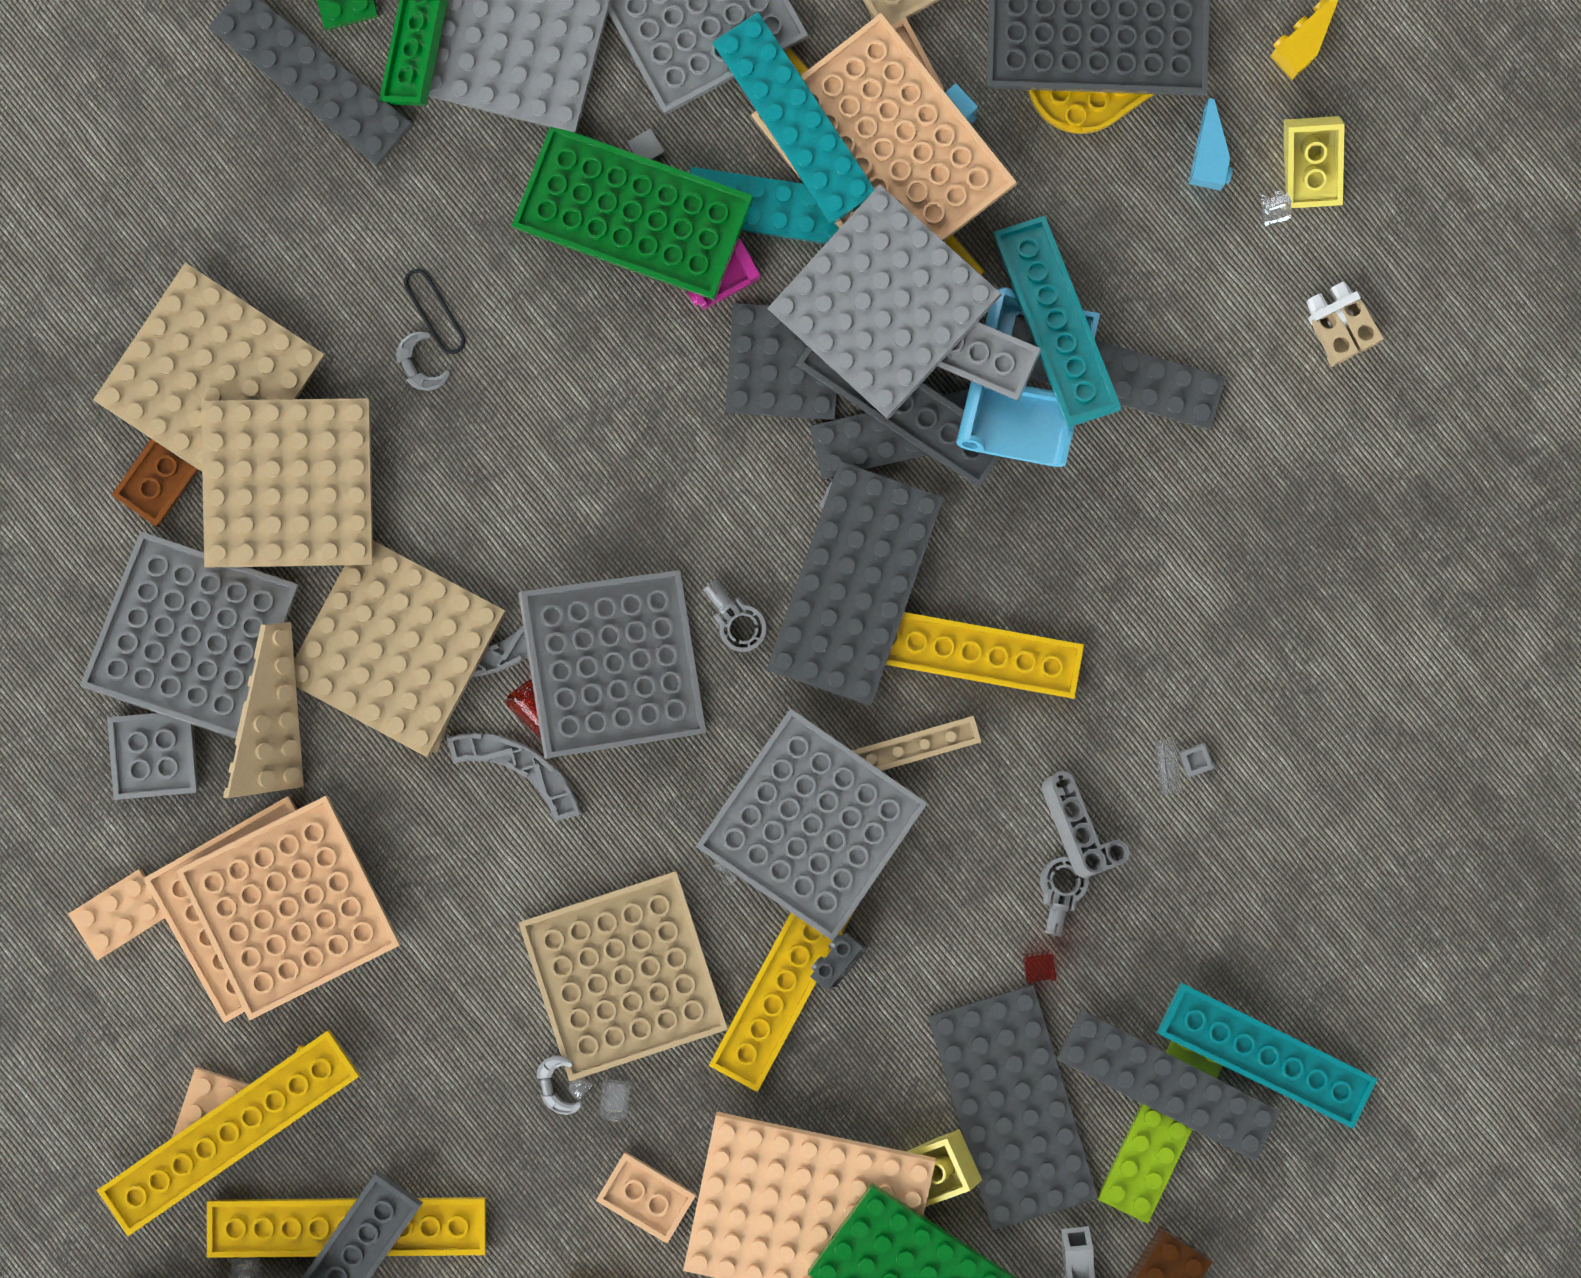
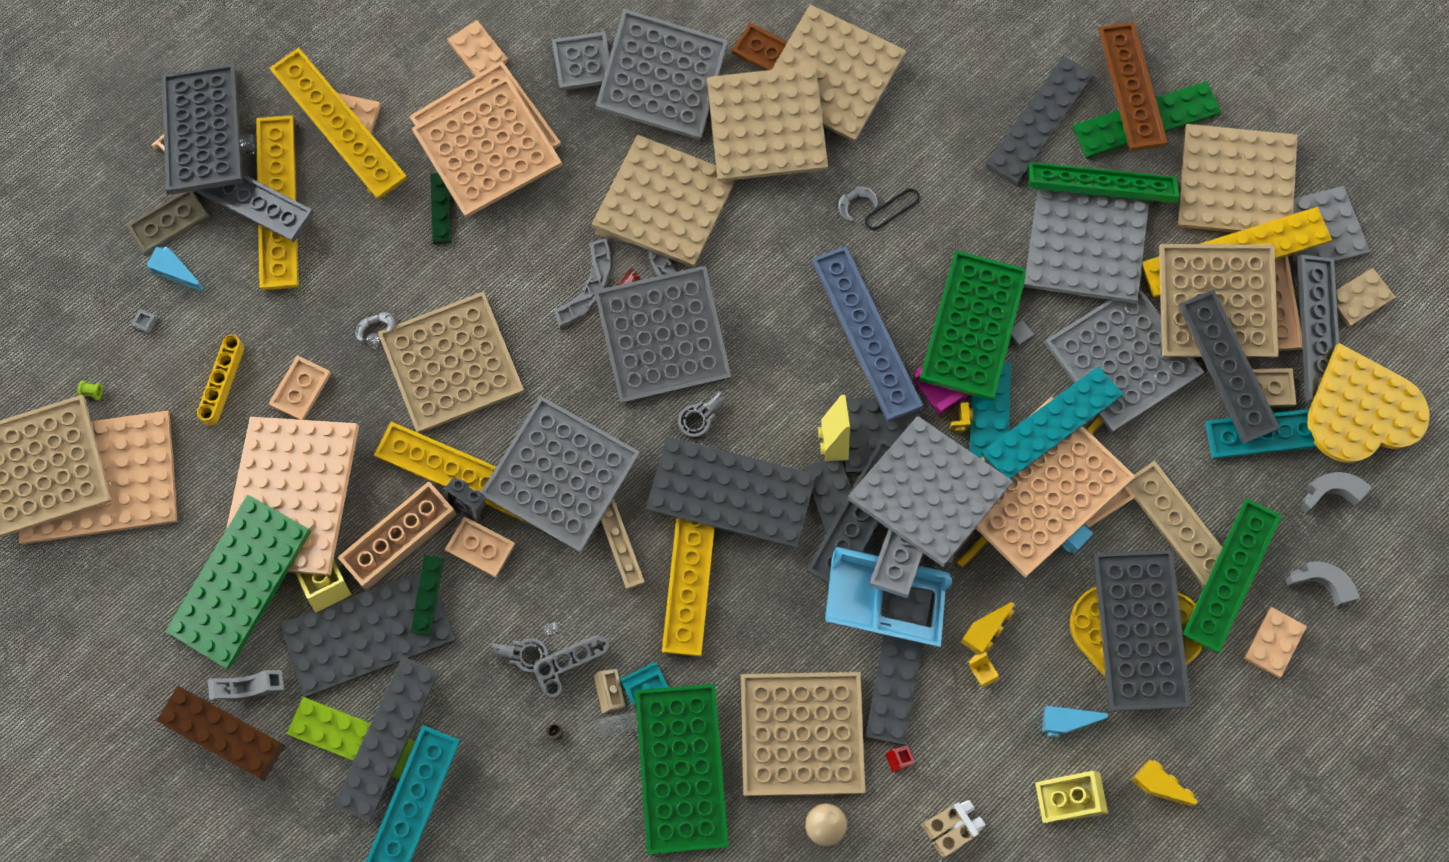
camera: 85 degrees right, 15 degrees down
(268, 729) = (603, 125): tan wing -> none
(382, 982) = (440, 211): none -> dark green plate
(615, 1099) = (366, 363): clear brick -> none
(630, 368) = (867, 334): none -> sand blue plate
(767, 241) = (965, 416): none -> yellow bracket
(783, 427) = (835, 432): none -> light yellow slope
(882, 1061) = (397, 536): none -> light nougat brick
(904, 944) = (480, 547): none -> light nougat plate
(971, 1021) = (427, 595): none -> dark green plate
(1028, 850) = (551, 628): none -> clear hinge
(1039, 966) = (468, 642): clear red panel -> none
(1056, 321) = (930, 613): teal plate -> none
(1079, 253) = (982, 631): none -> yellow slope
(1115, 725) = (644, 678): none -> teal plate
(1120, 774) = (609, 690): none -> tan slope
(1133, 258) = (983, 669): none -> yellow bracket
(1168, 855) = (552, 730): none -> dark brown hinge
(1196, 760) = (623, 745): light grey tile -> none
(1200, 515) = (802, 734): none -> tan plate
(1236, 683) = (681, 769): none -> green plate
(1242, 386) = (899, 758): none -> red slope
(1275, 208) = (1032, 771): clear tile -> none
(1329, 493) = (826, 824): none -> tan piece

